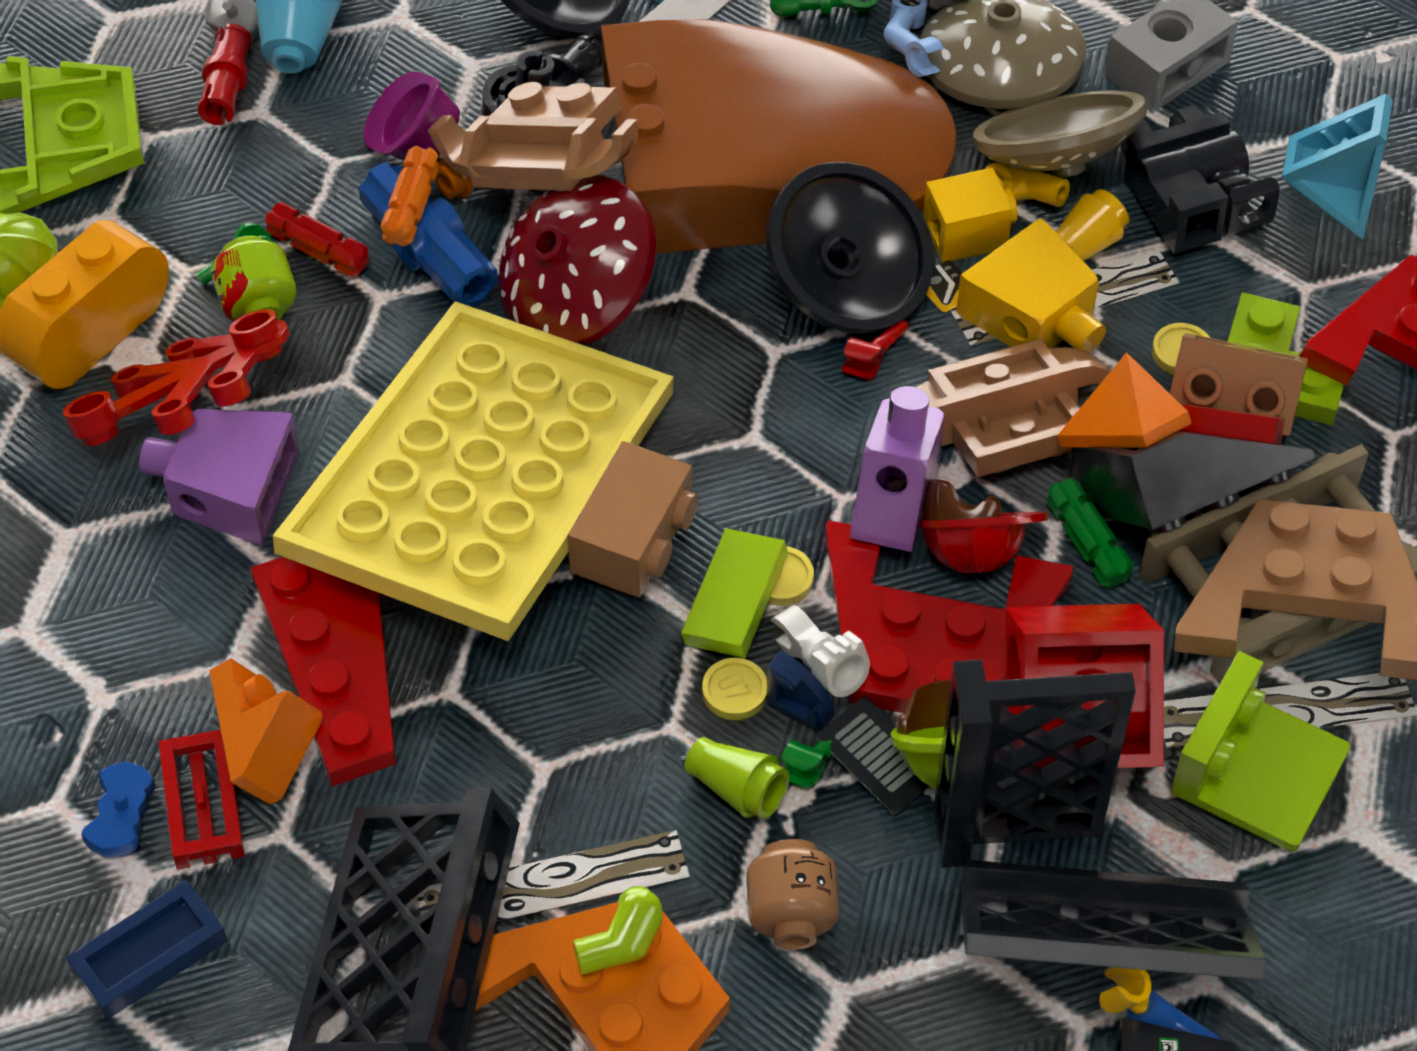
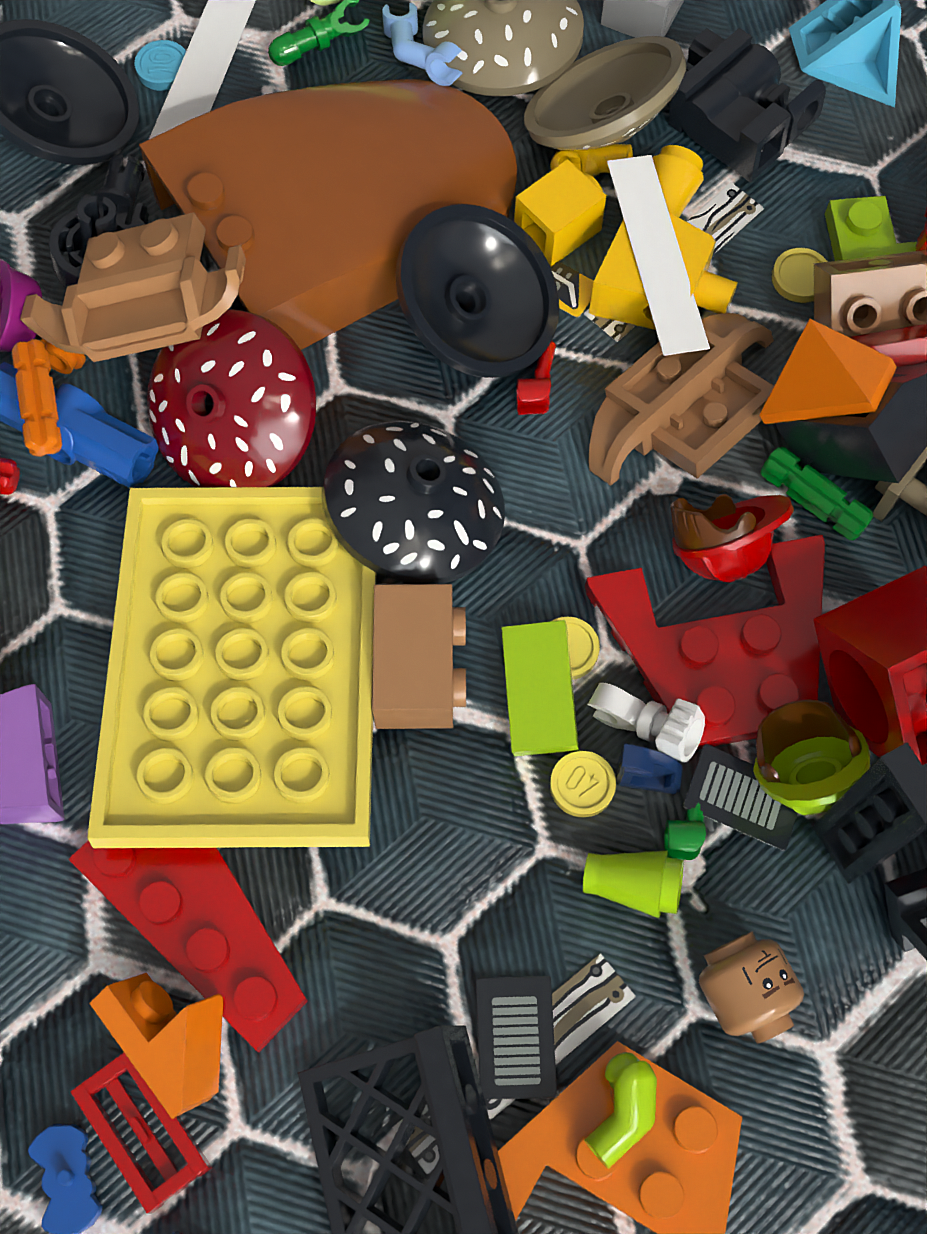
camera: 25 degrees left, 15 degrees up
(562, 862) = (516, 1037): none -> black sticker
(701, 399) = (408, 524): none -> black dish
(904, 446) = (637, 486): medium lavender torso -> none
(1034, 273) = (658, 255): none -> white sticker

